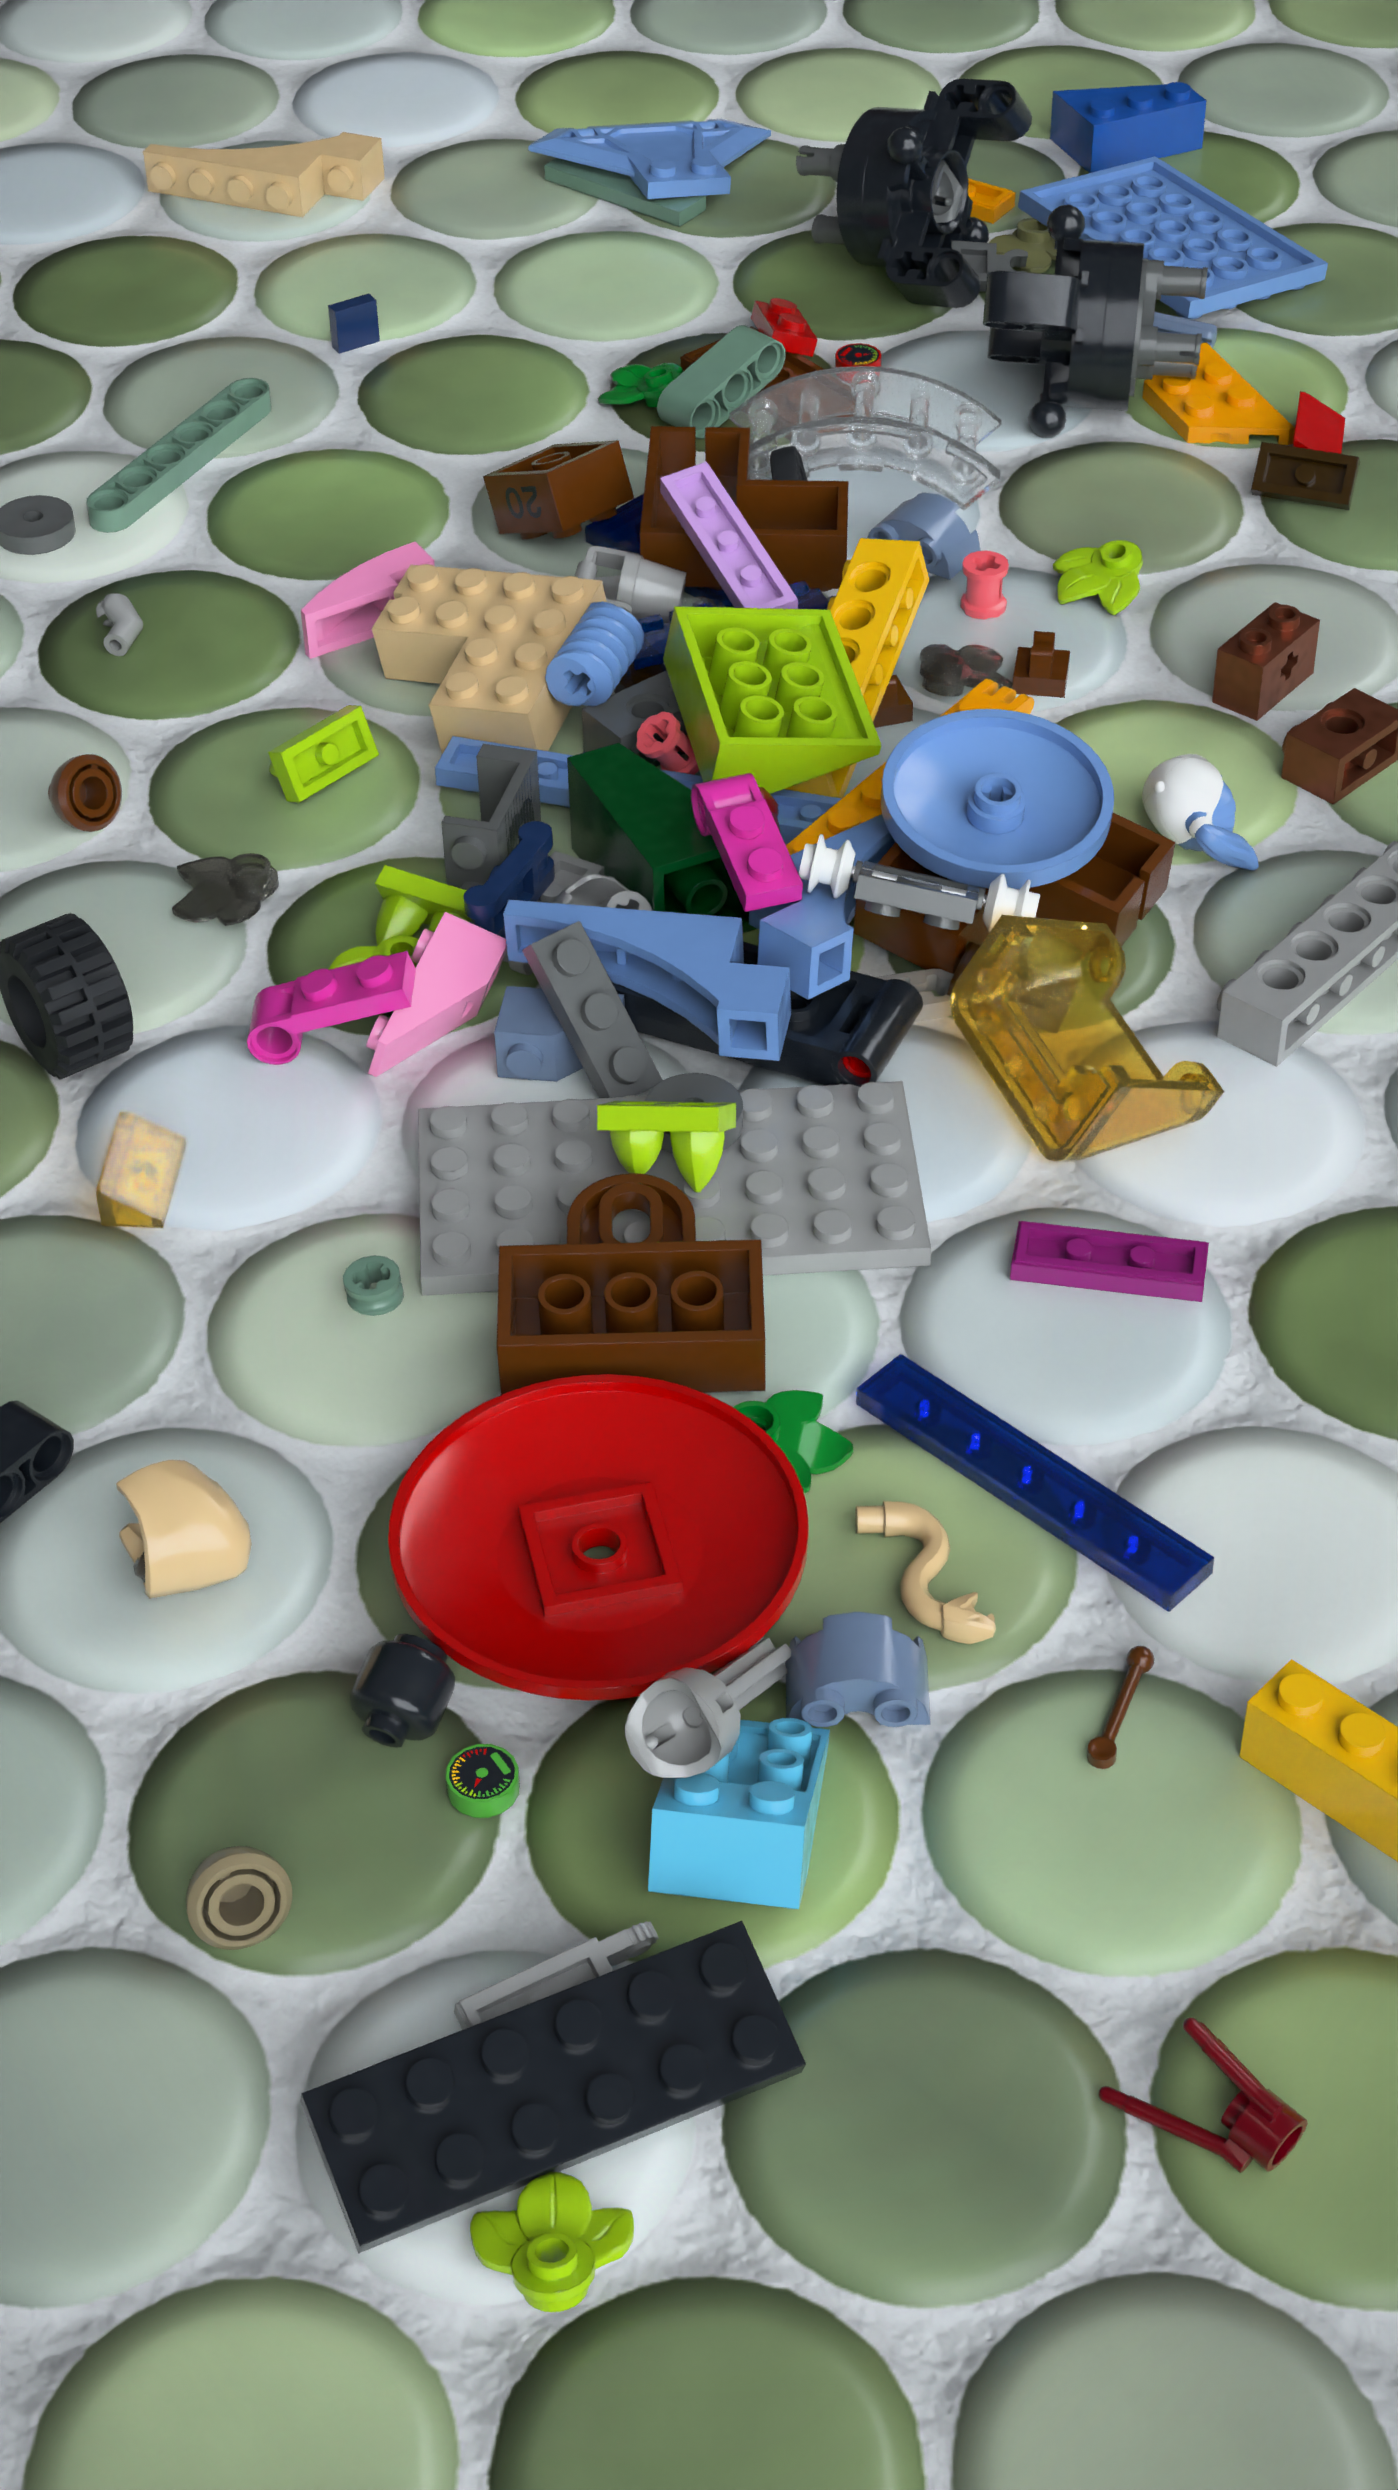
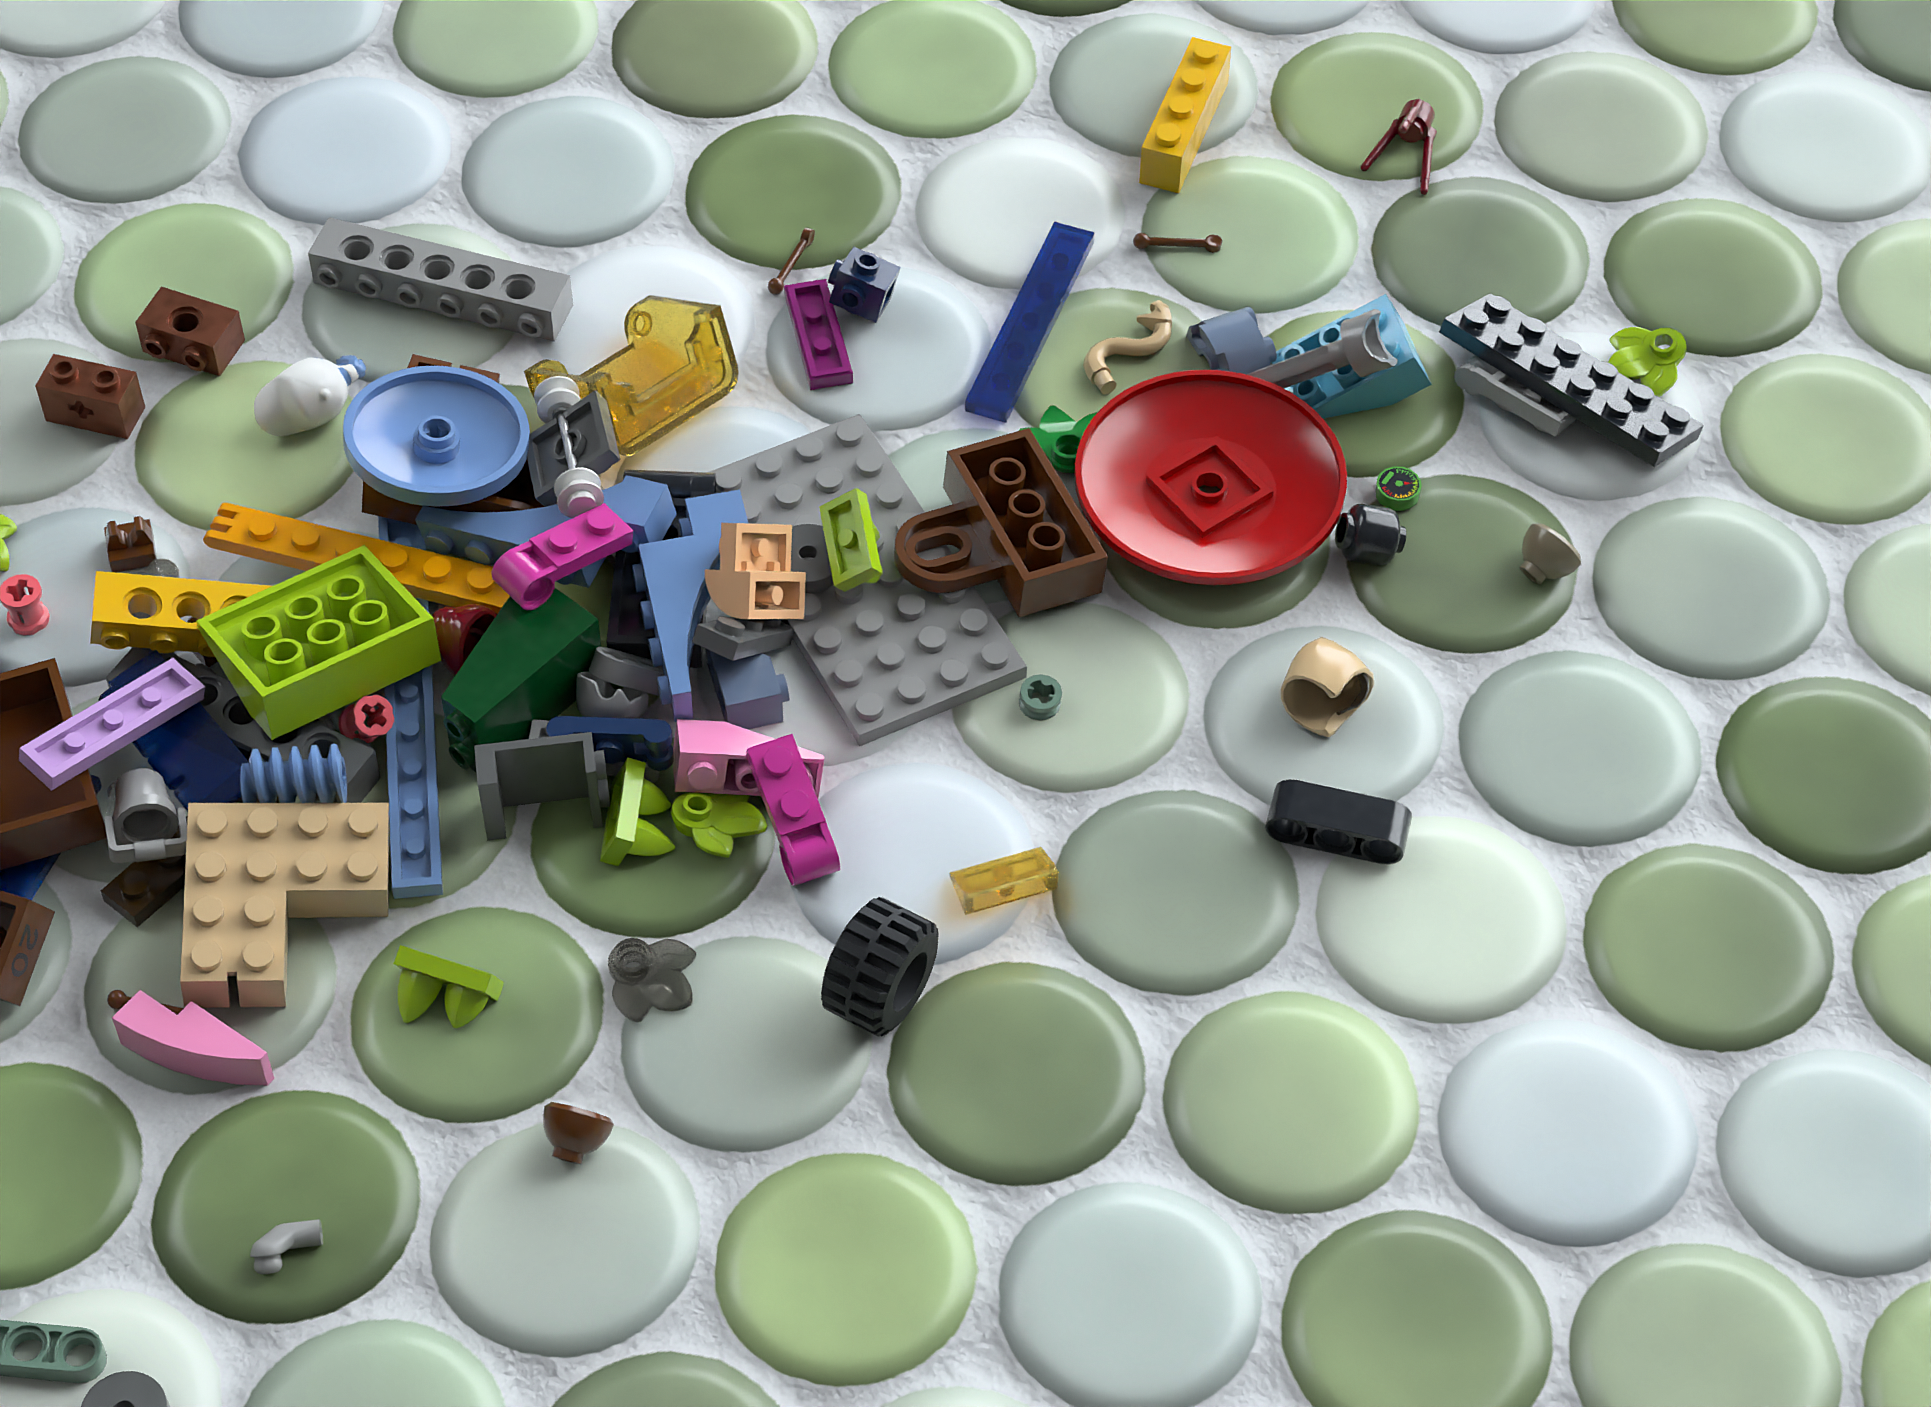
camera: 115 degrees left, 10 degrees up
(650, 1017) = (756, 573): none -> light nougat brick
(1155, 1297) = (863, 284): none -> dark blue brick
(1302, 1298) = (776, 284): none -> reddish brown hinge

